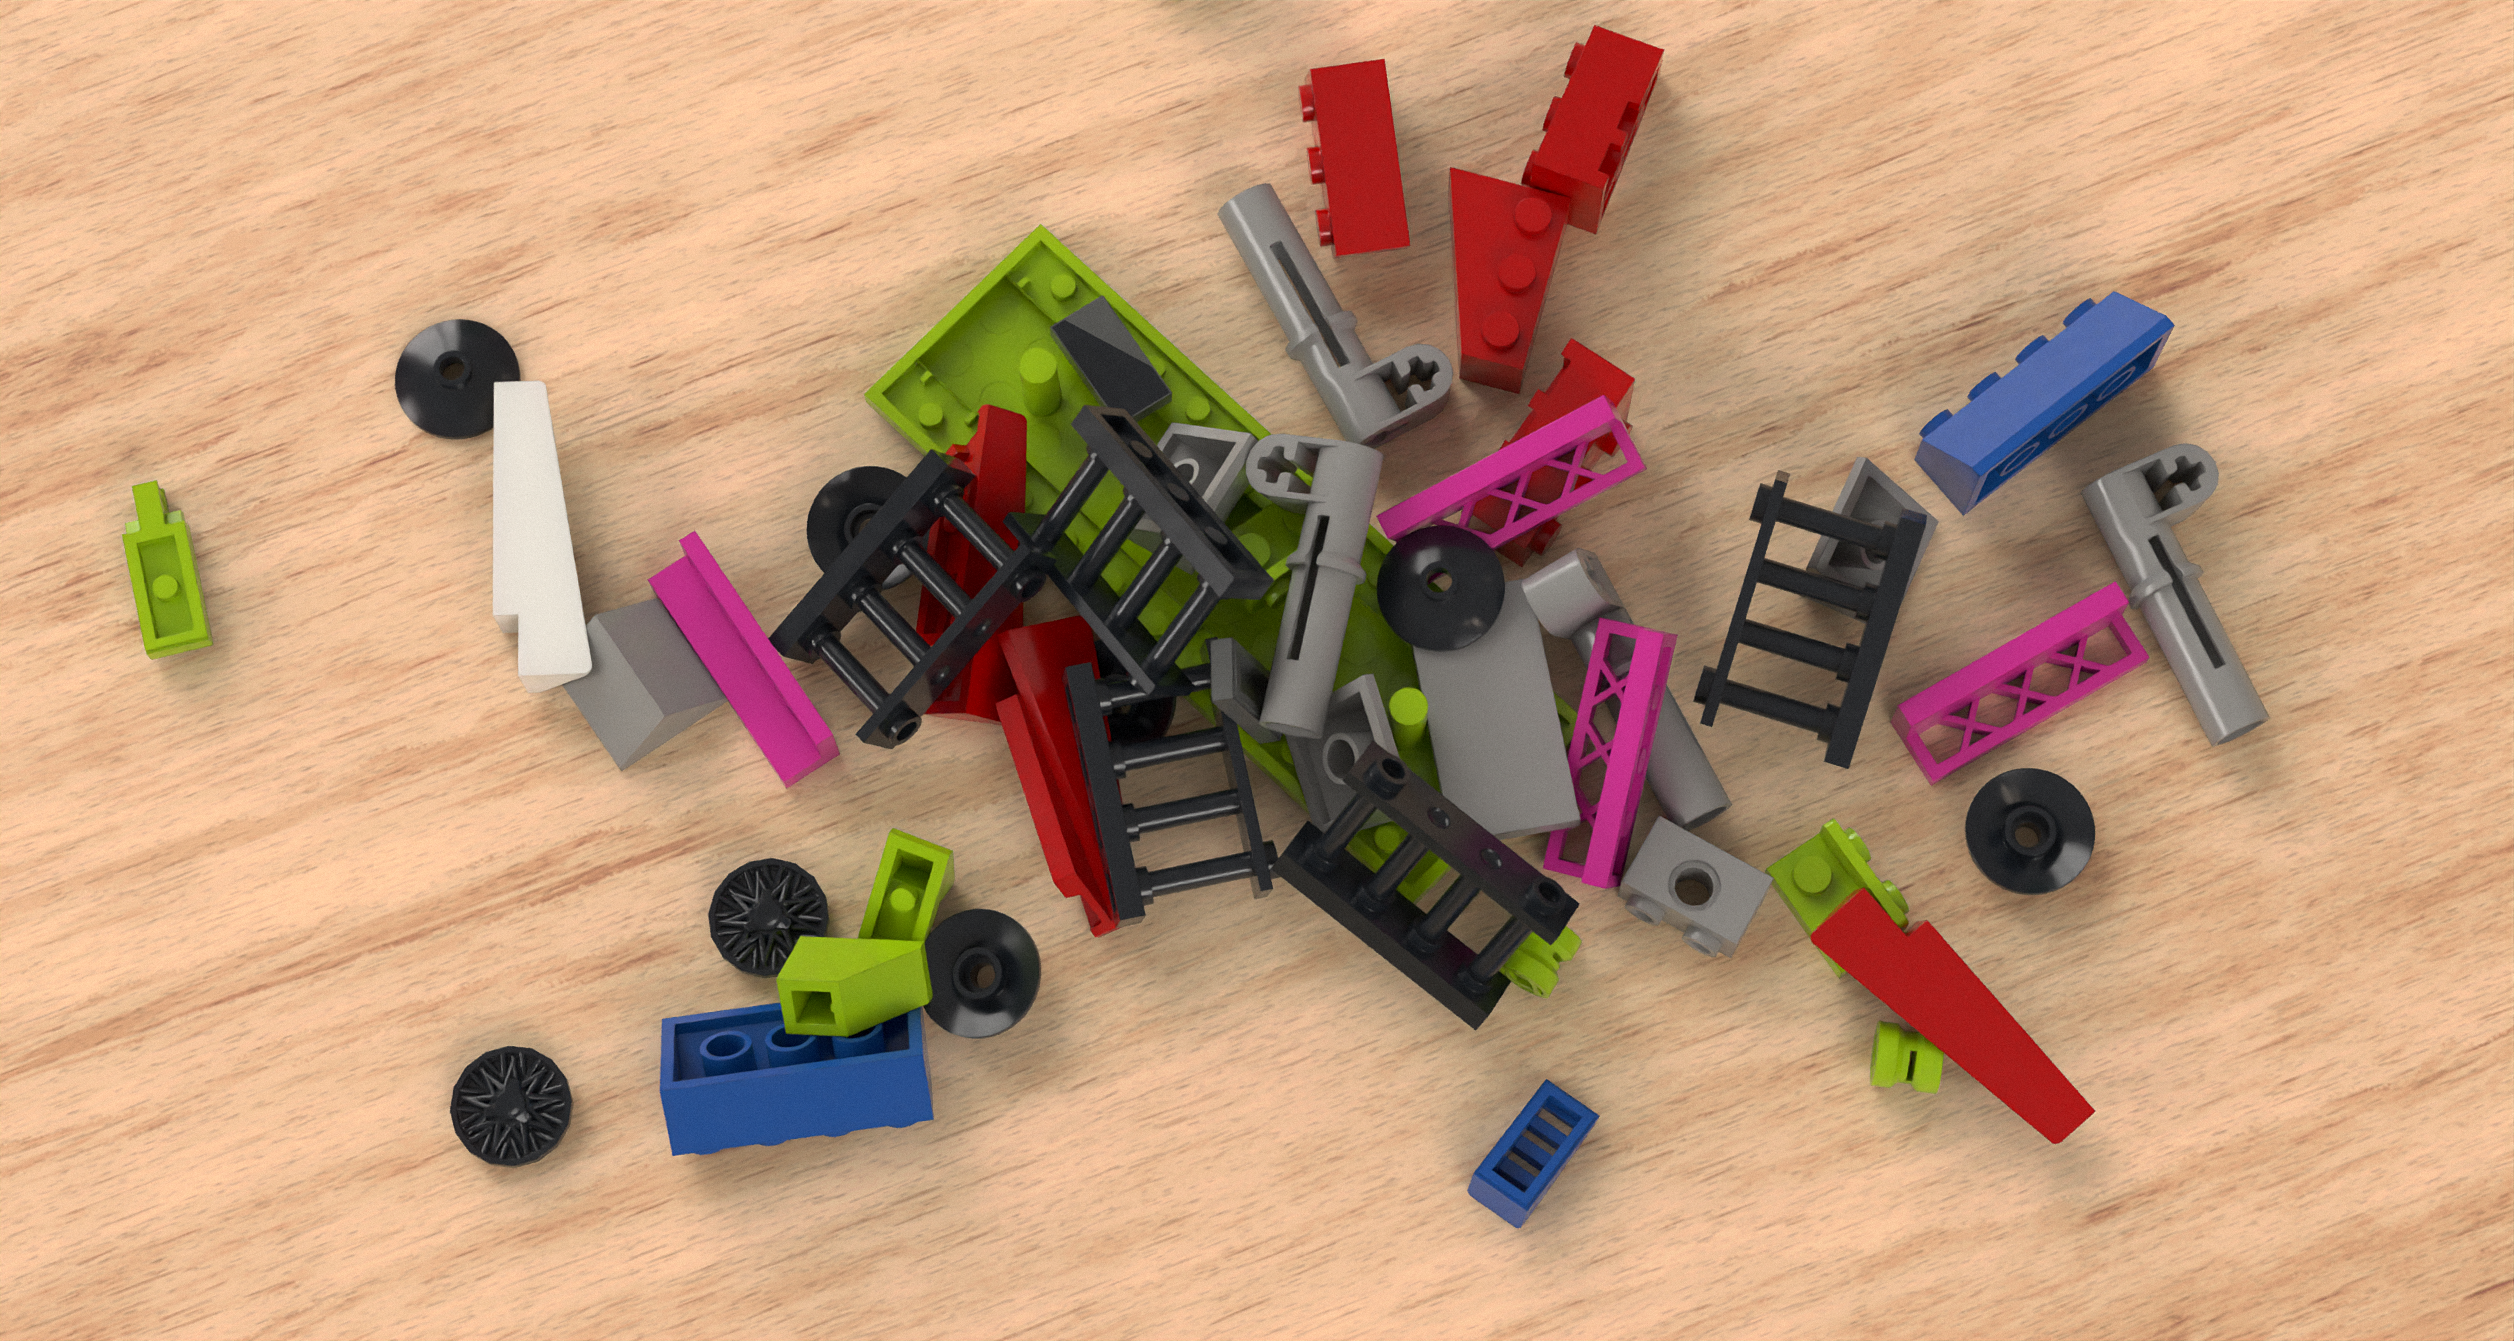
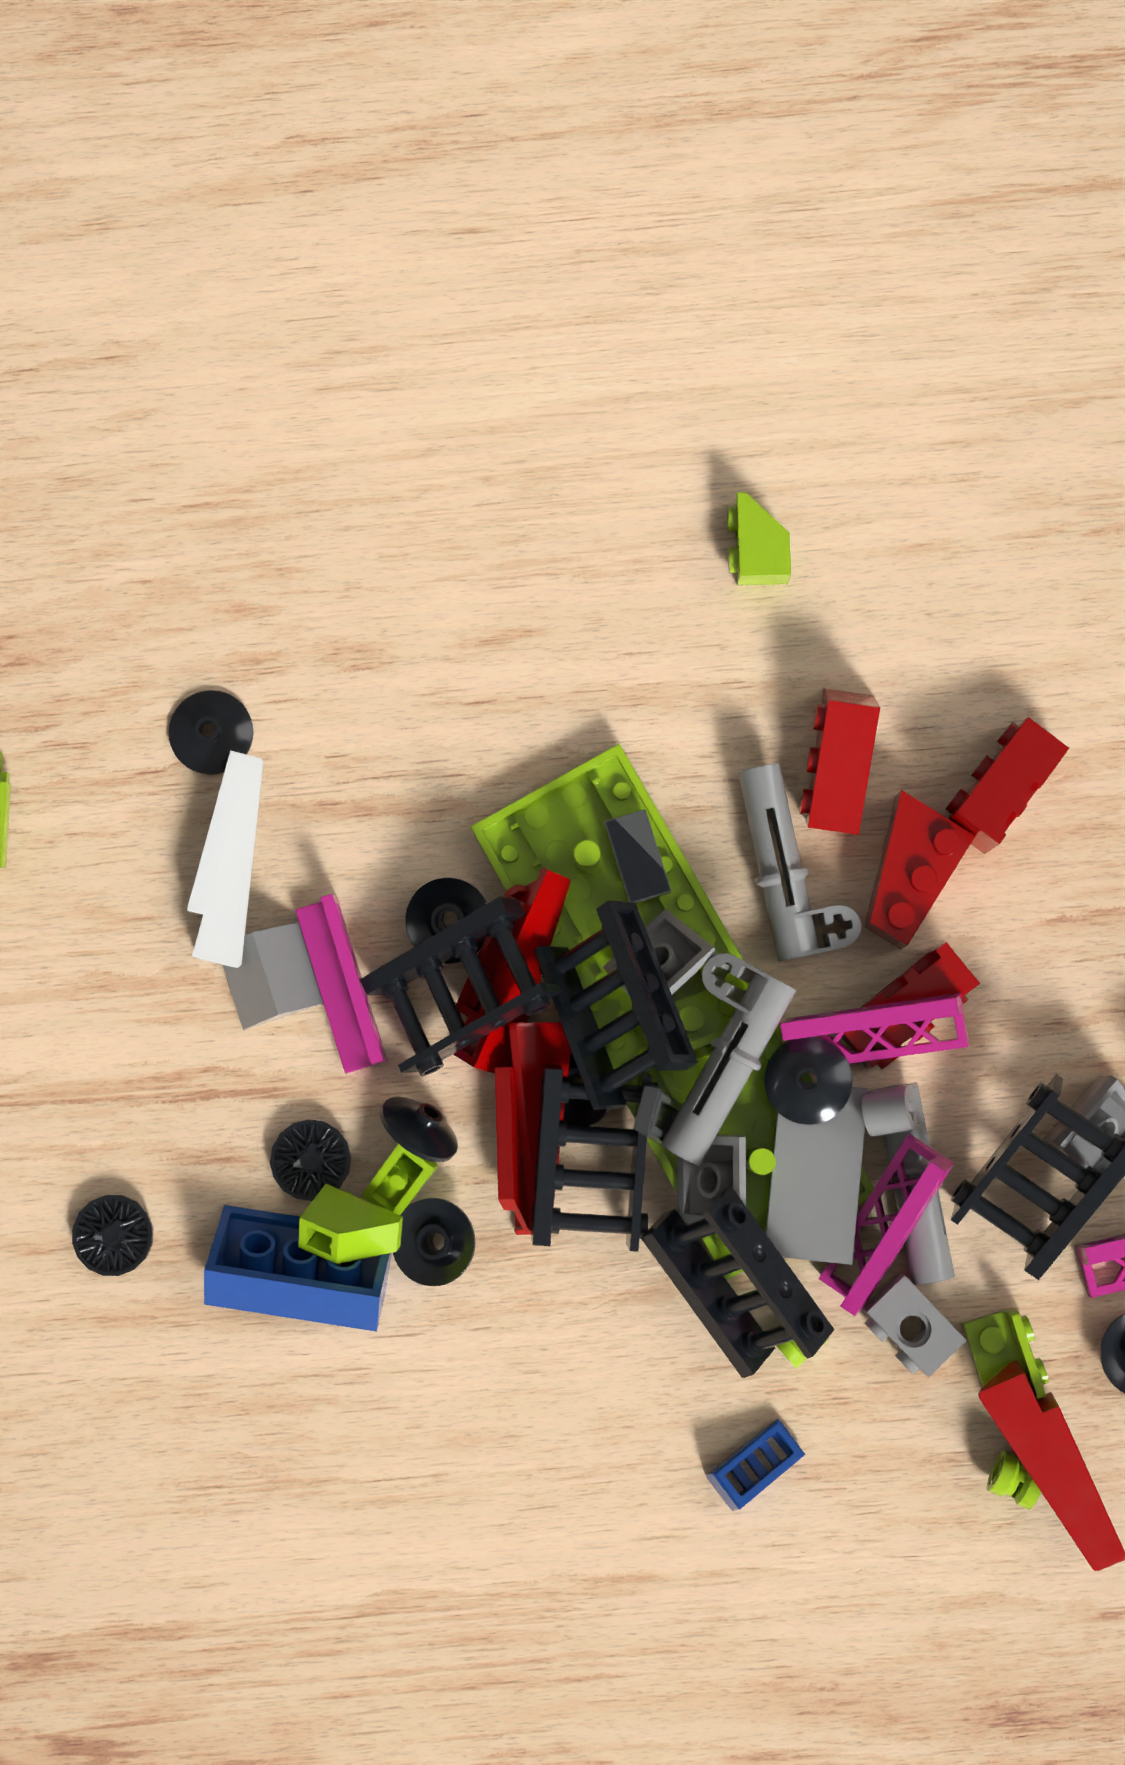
camera: 20 degrees right, 10 degrees up
(913, 815) = (419, 1128): none -> black dish

